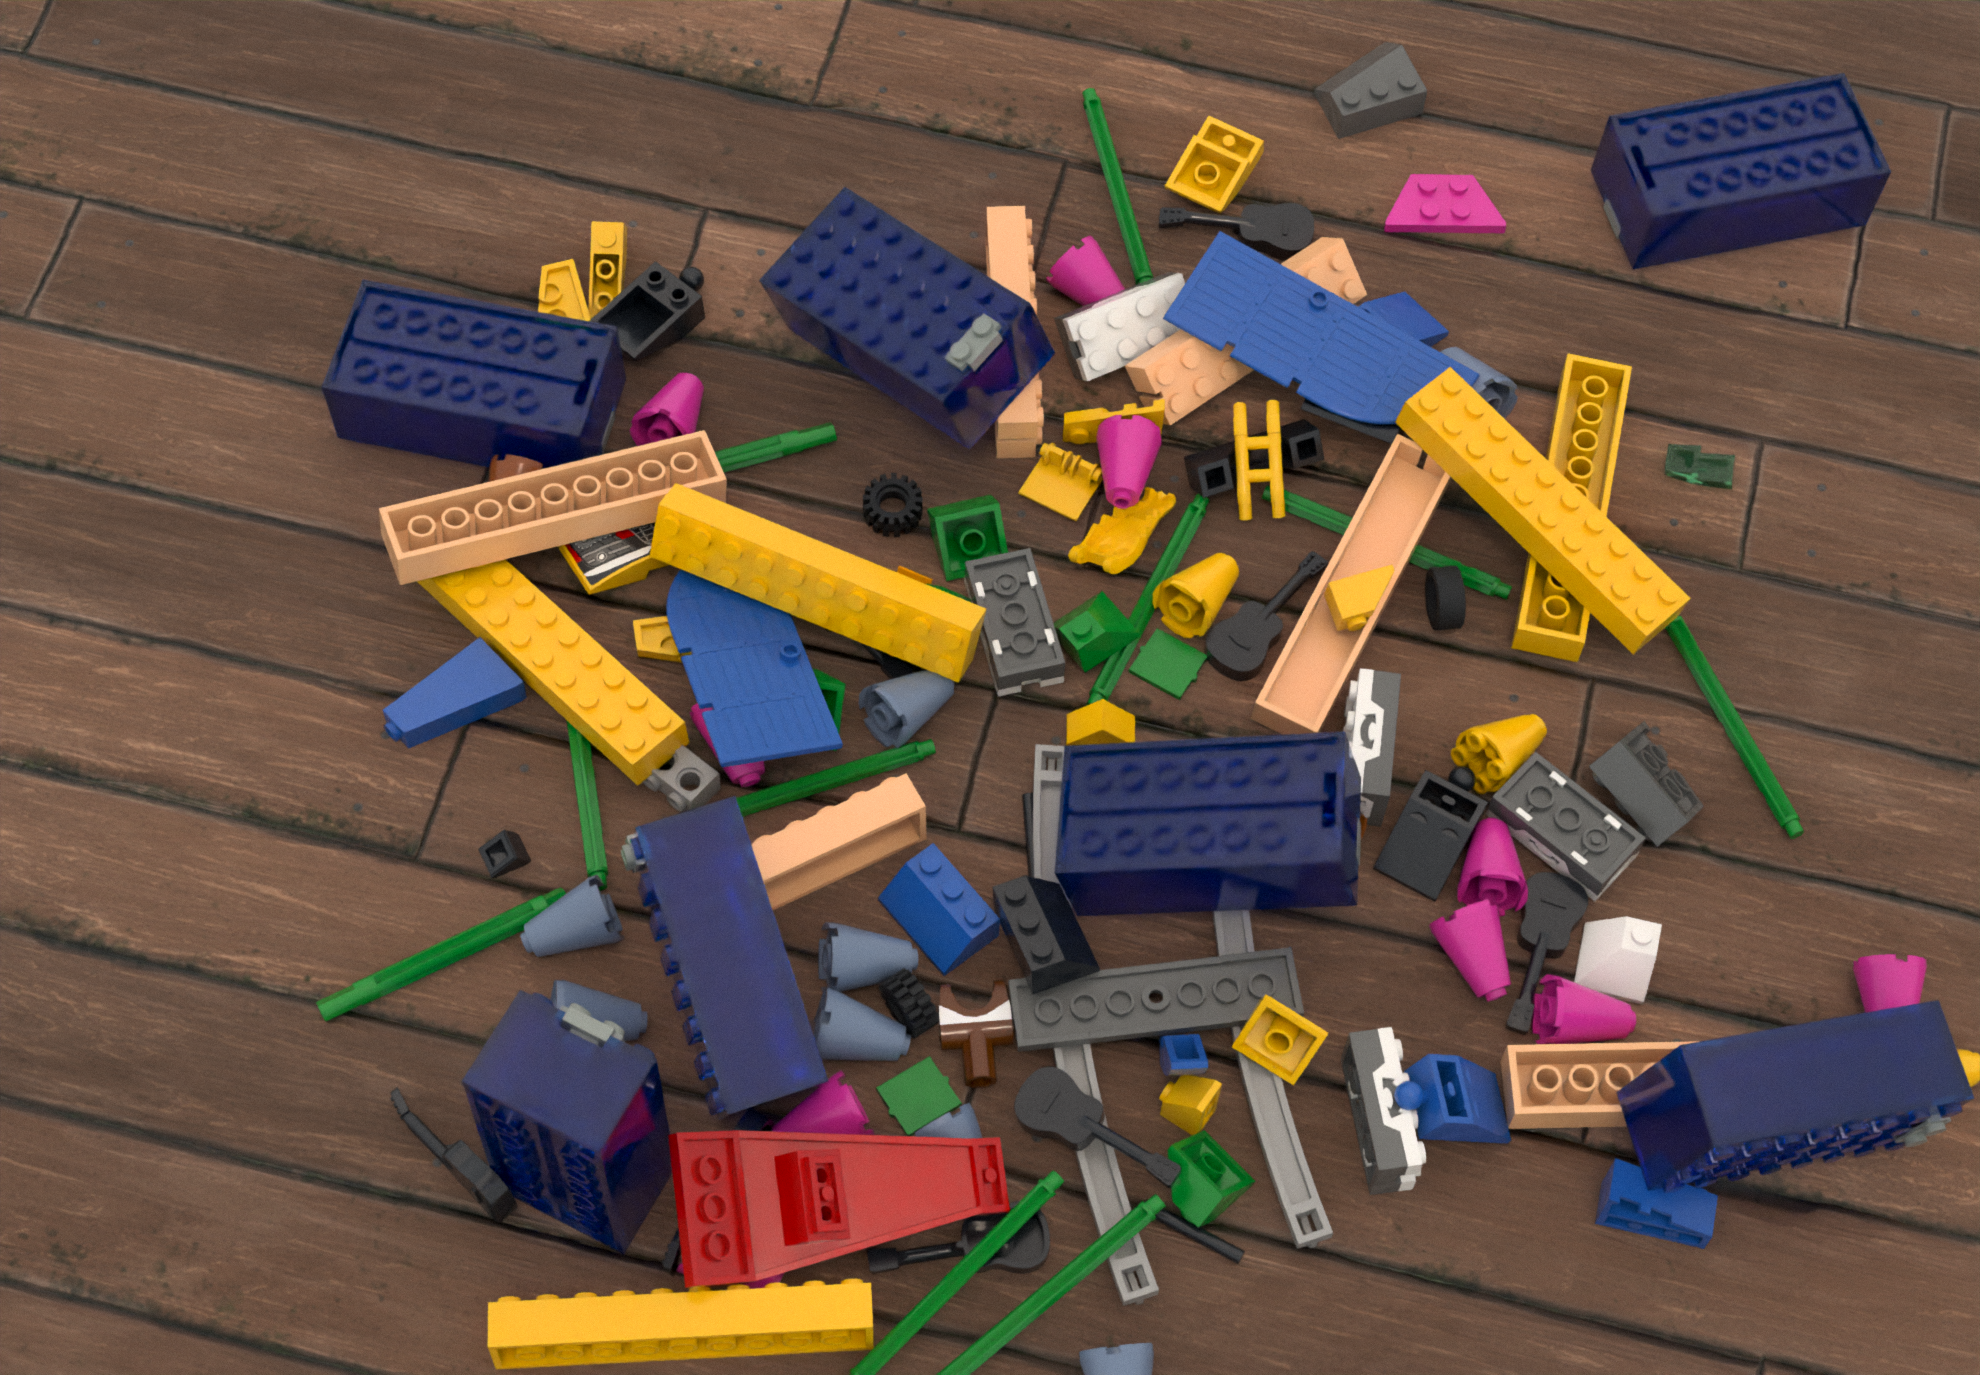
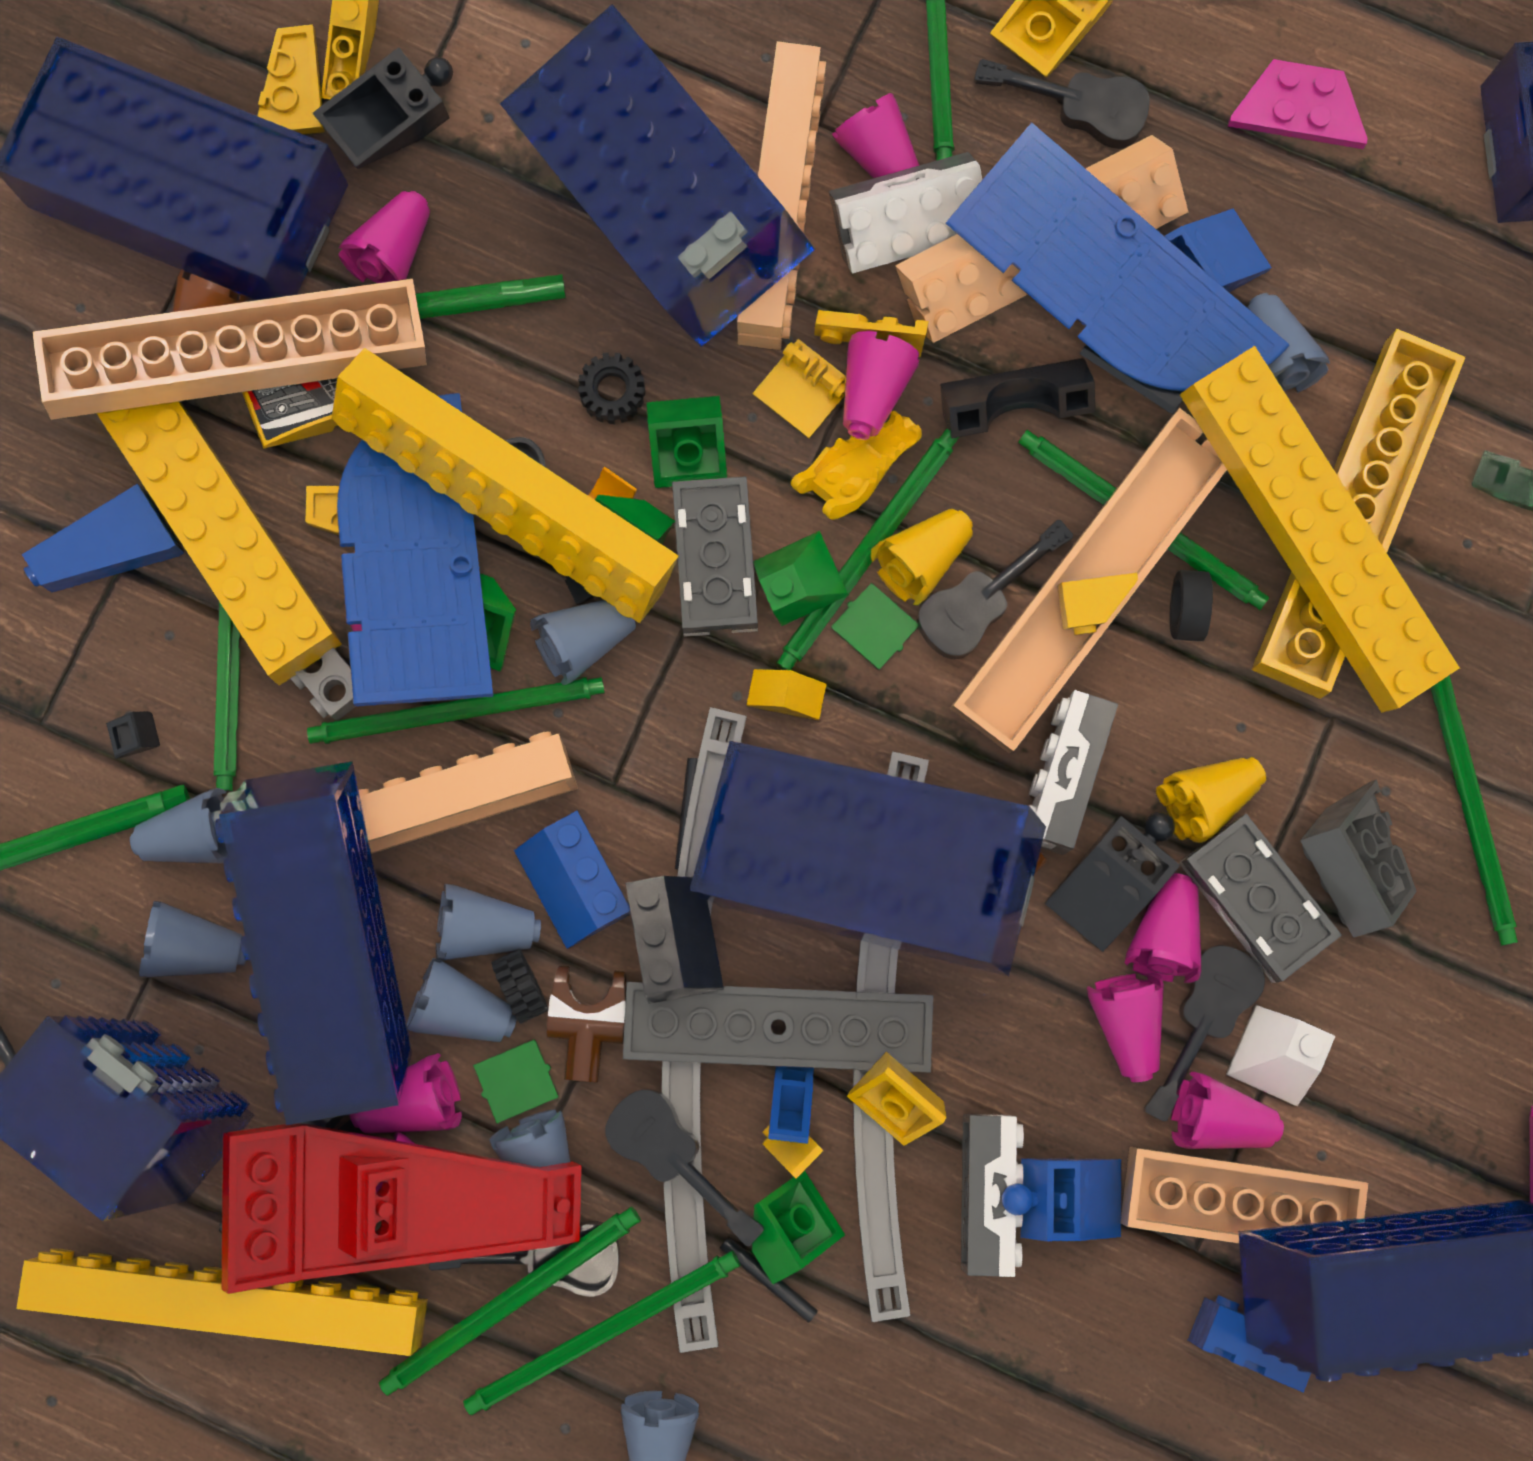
camera: 10 degrees right, 20 degrees up
(1273, 474) = (1039, 388): yellow piece -> none

